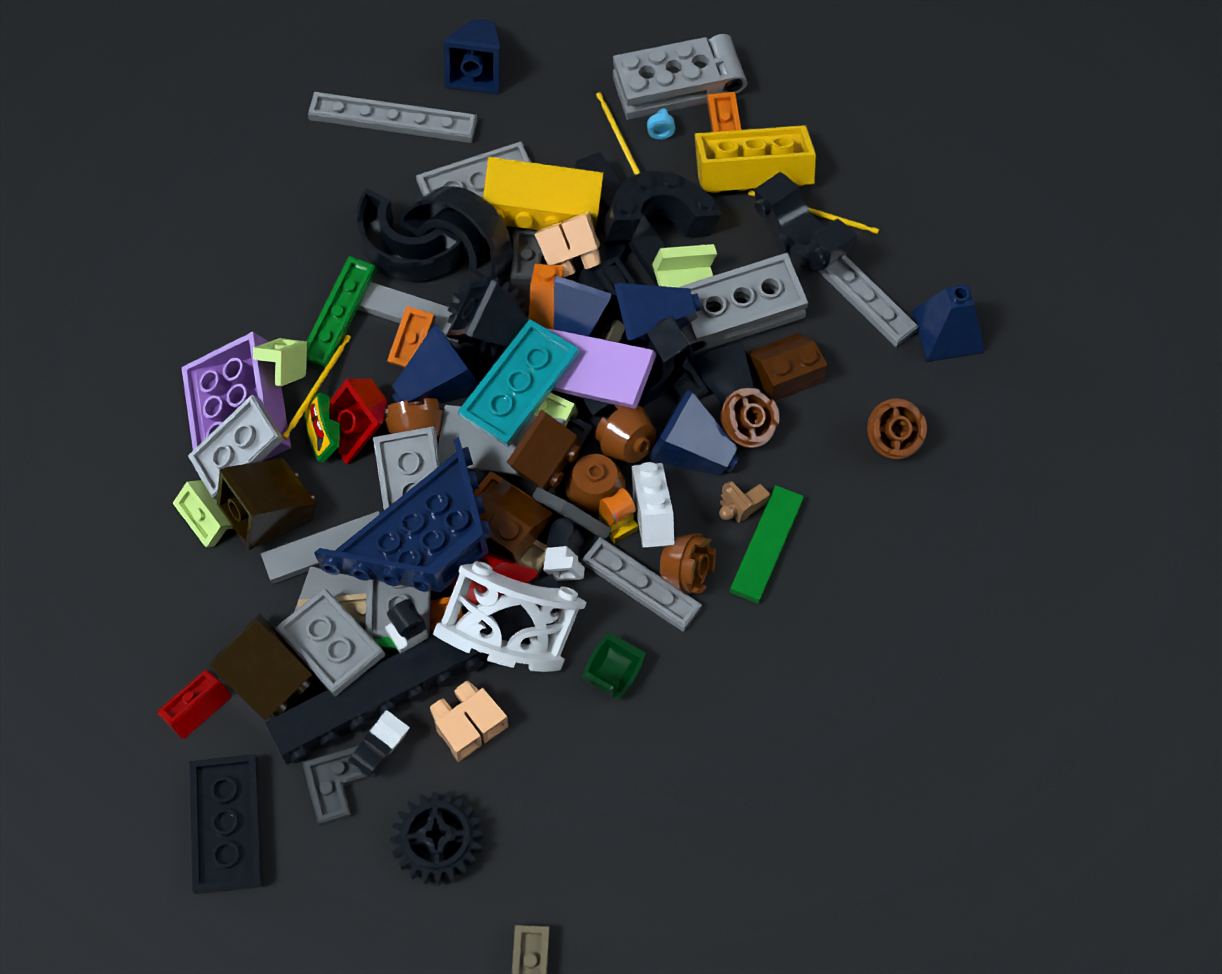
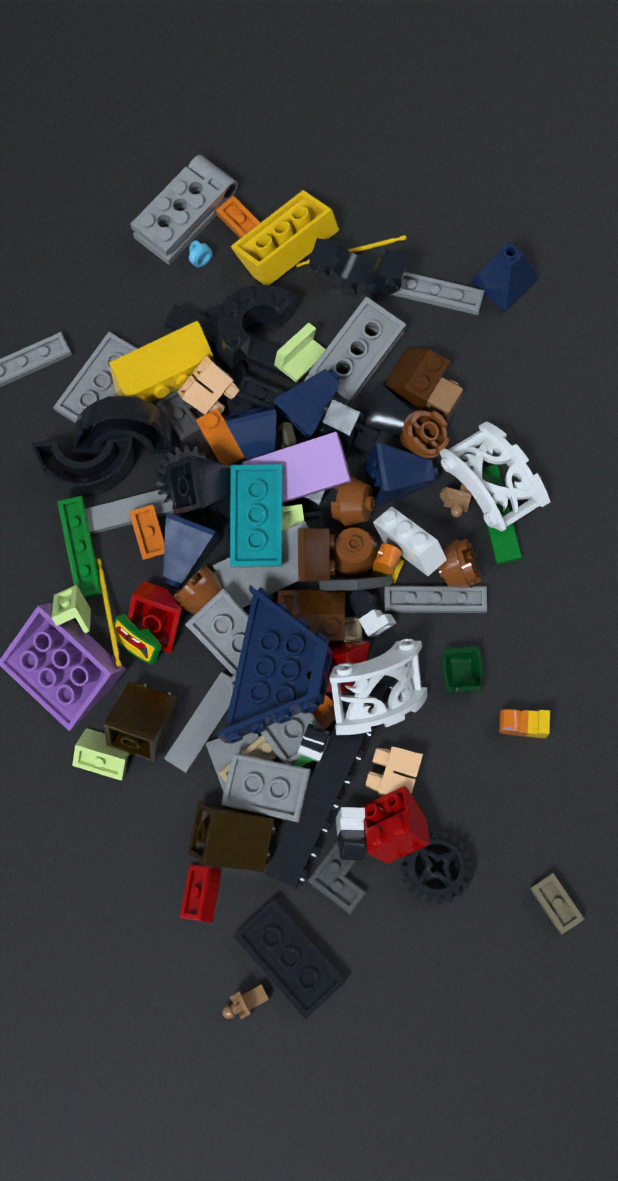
camera: 30 degrees left, 10 degrees up
(150, 835) = (245, 1003): none -> medium nougat piece
(241, 439) = (90, 696): light grey tile -> none
(423, 765) = (394, 826): none -> red slope
(473, 57) = (28, 287): dark blue slope -> none
(618, 134) = (176, 282): yellow piece -> none
(637, 761) = (525, 723): none -> leg
(797, 400) = (445, 398): none -> medium nougat brick
(814, 534) = (491, 440): none -> white fence
(896, 428) = (527, 376): dark orange cone -> none

